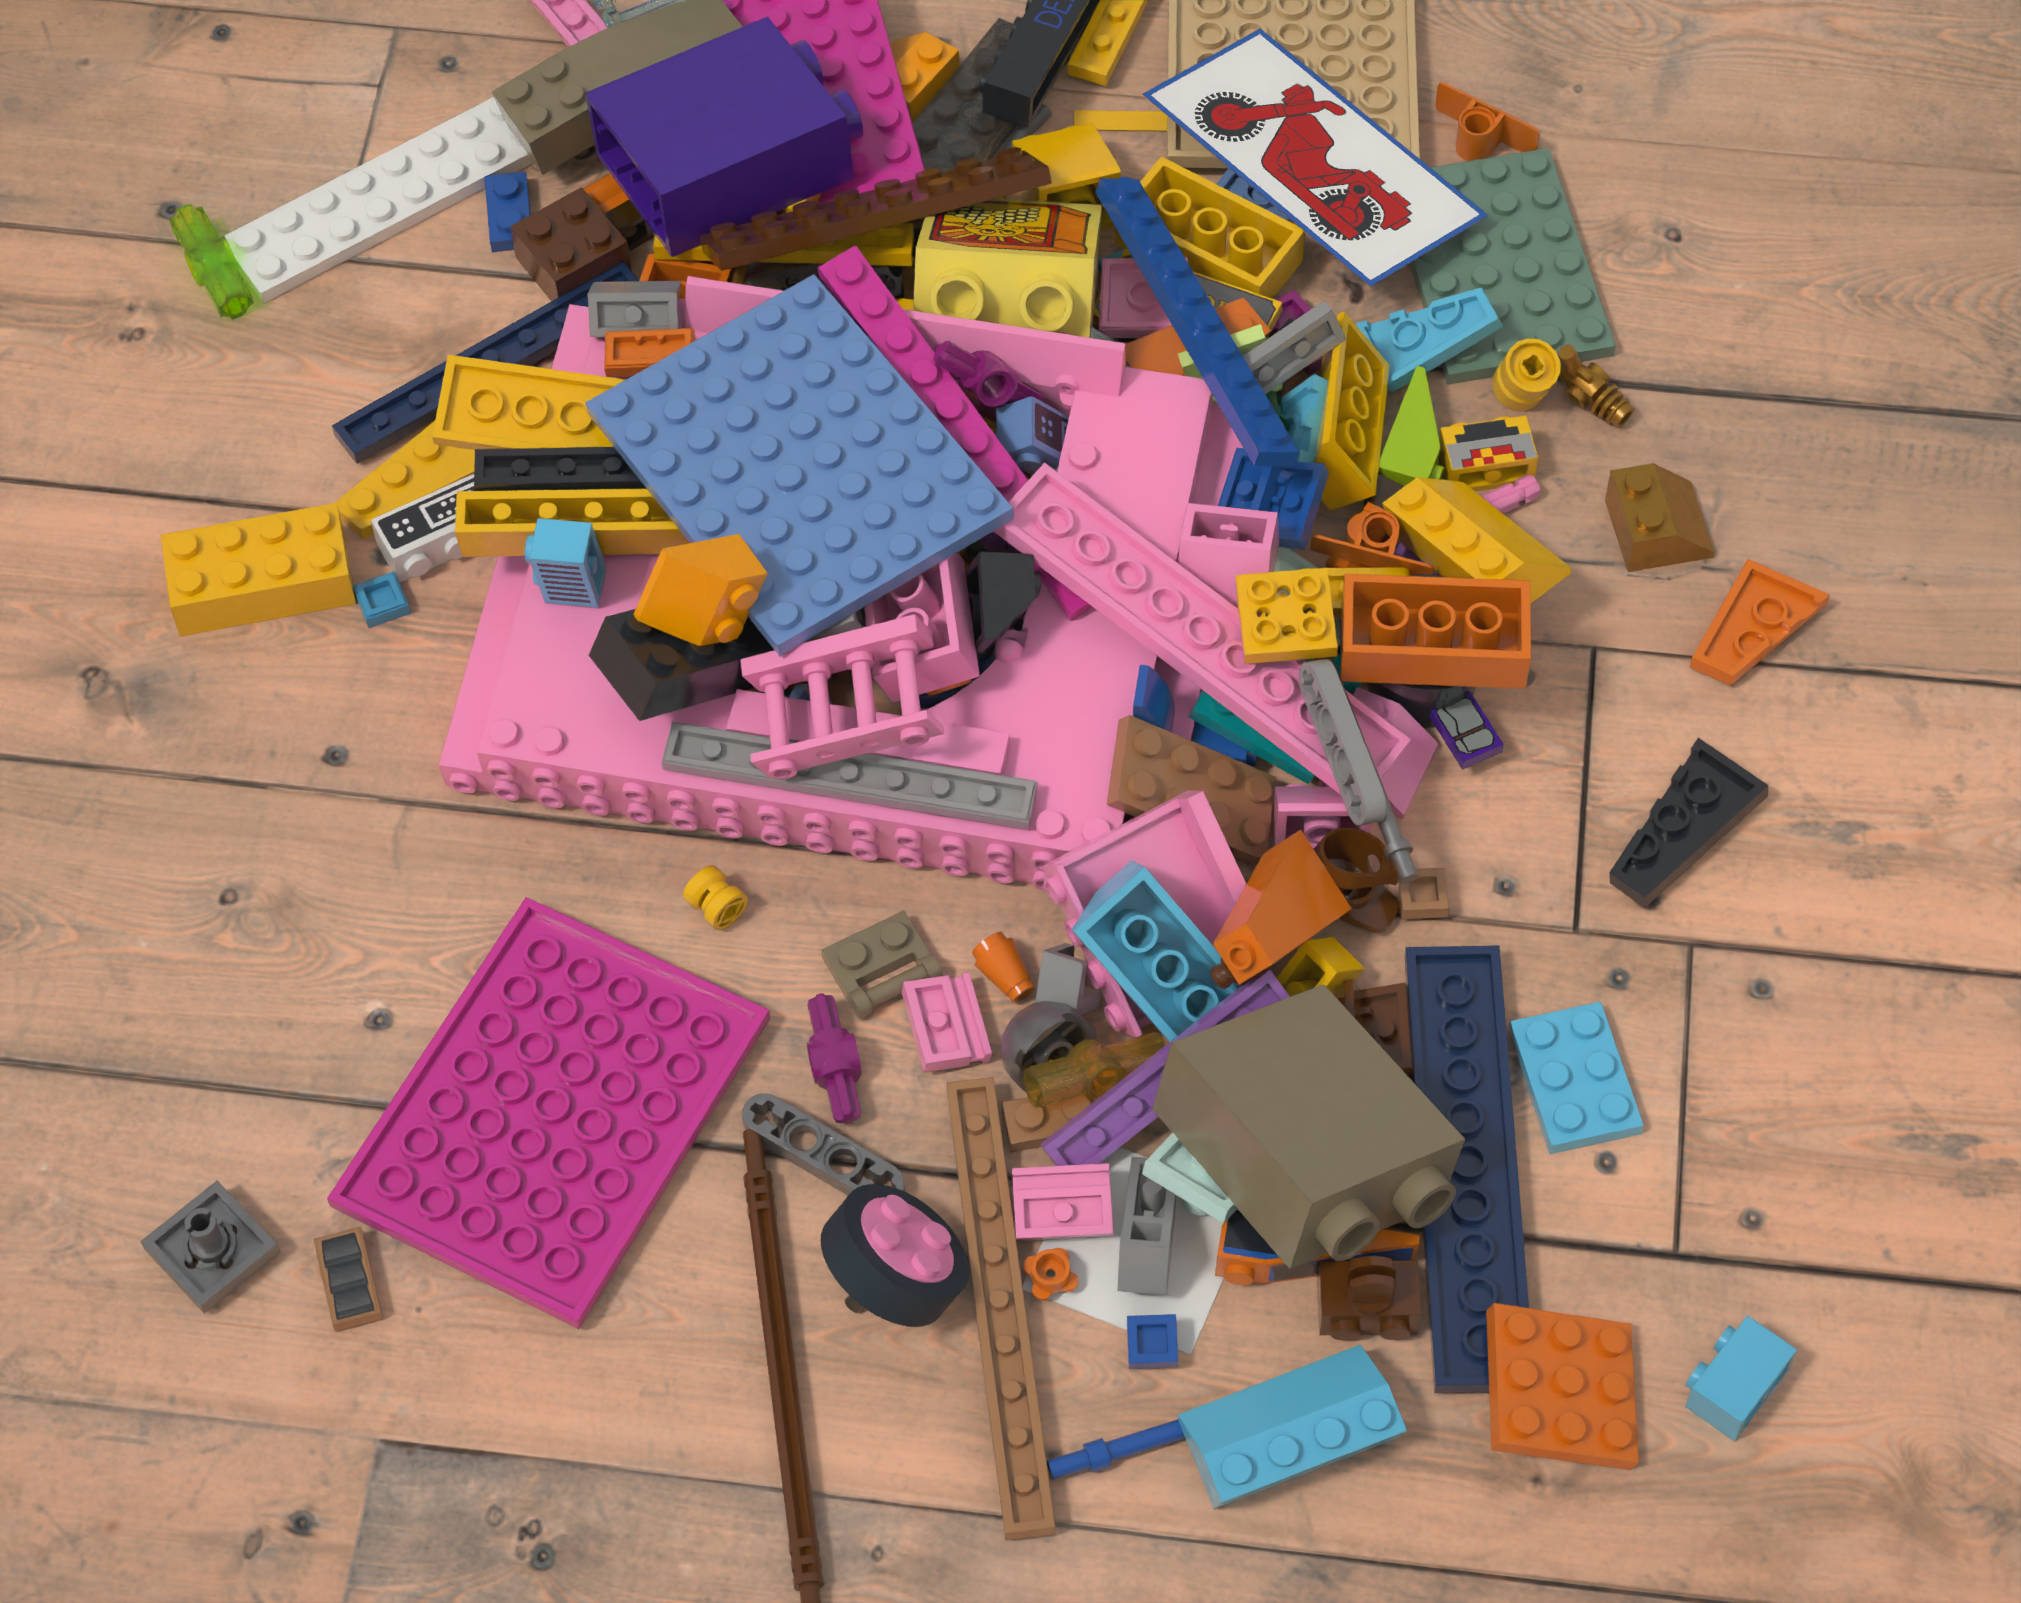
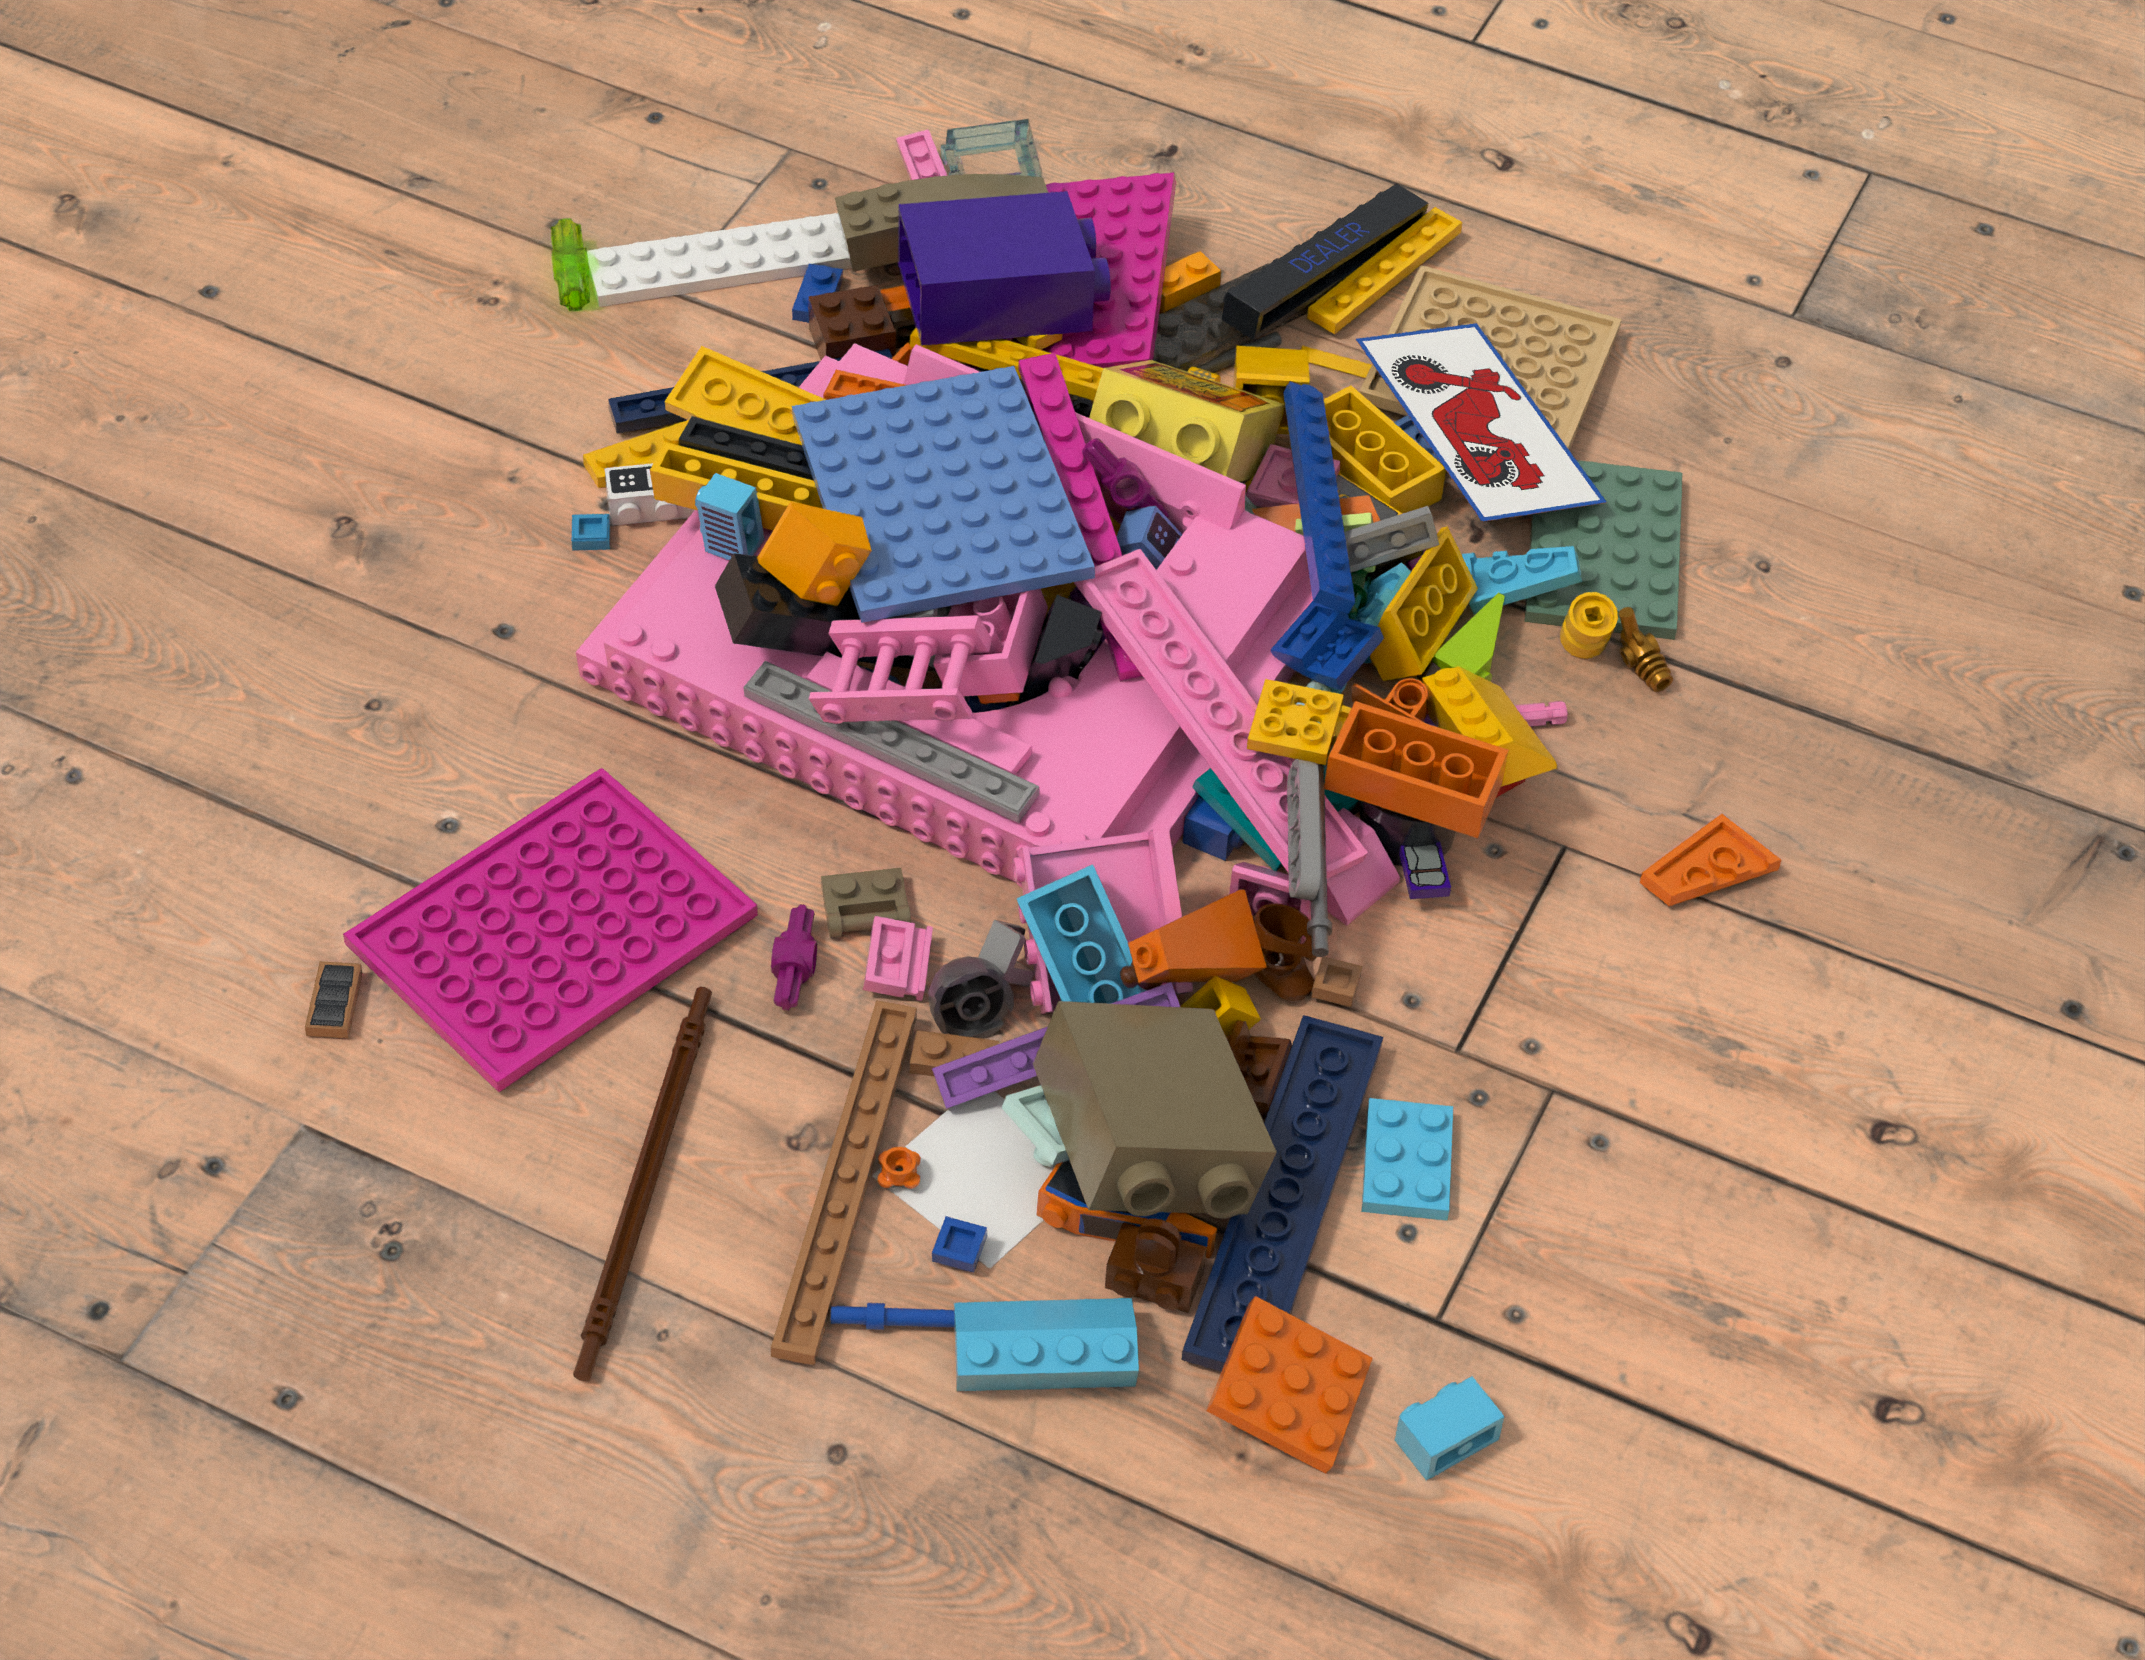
camera: 15 degrees right, 10 degrees down
(201, 1234) = (235, 935): flat silver plate -> none
(257, 569) = (503, 481): yellow brick -> none
(633, 306) = (865, 358): light grey panel -> none
(715, 897) = (756, 818): yellow wheel -> none
(828, 1145) = (758, 1022): flat silver beam -> none
(885, 206) = (1111, 348): reddish brown plate -> none
(894, 1256) = (770, 1106): black wheel -> none
(1003, 966) = (962, 928): orange cone -> none
(1062, 1202) = (931, 1116): bright pink plate -> none
(1088, 1069) = (980, 1021): clear yellow piece -> none
(1146, 1234) = (988, 1163): light grey slope -> none
(1153, 699) = (1160, 762): blue slope -> none
(1159, 765) = (1200, 852): medium nougat plate -> none
(1227, 543) = (1273, 655): bright pink slope -> none
(1482, 125) = (1632, 442): orange piece -> none
(1488, 452) = (1533, 674): brick -> none
(1656, 518) = (1658, 762): pearl gold slope -> none
(1696, 812) = (1595, 991): black wing -> none

